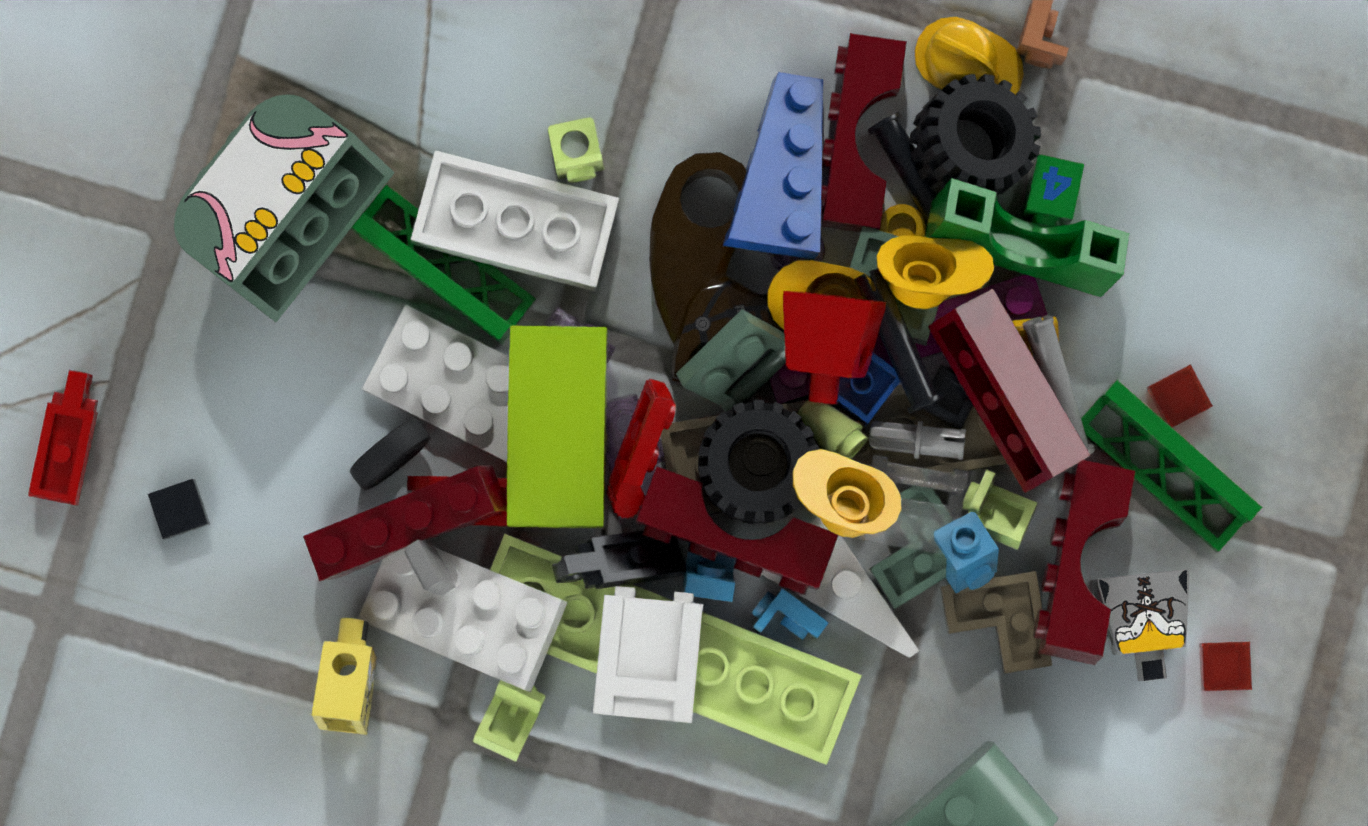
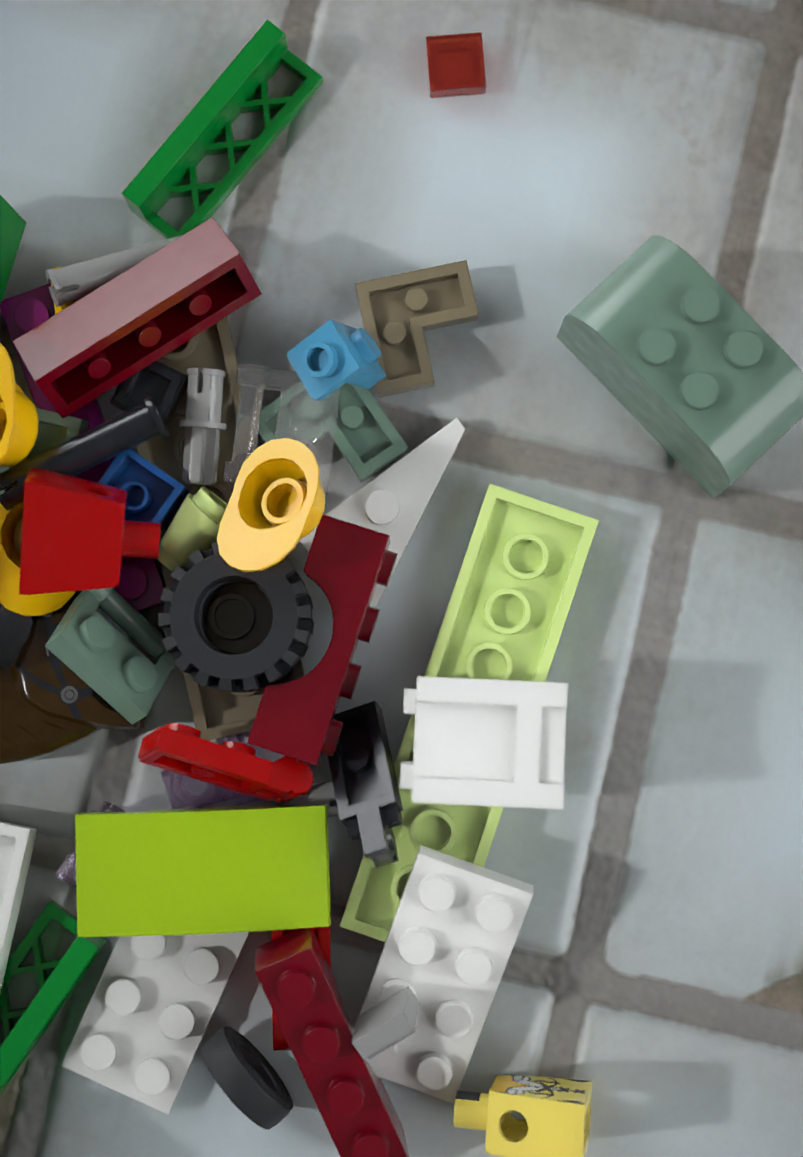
camera: 90 degrees left, 0 degrees up
(509, 720) = (568, 908): yellowish green bracket -> none
(709, 578) = (382, 671): dark azure bracket -> none
(798, 617) = (425, 563): dark azure bracket -> none
(1000, 511) = (285, 323): yellowish green bracket -> none
(1074, 619) = (409, 233): dark red arch -> none
(1146, 616) = (402, 155): torso -> none
(1179, 396) = (140, 127): clear red tile -> none

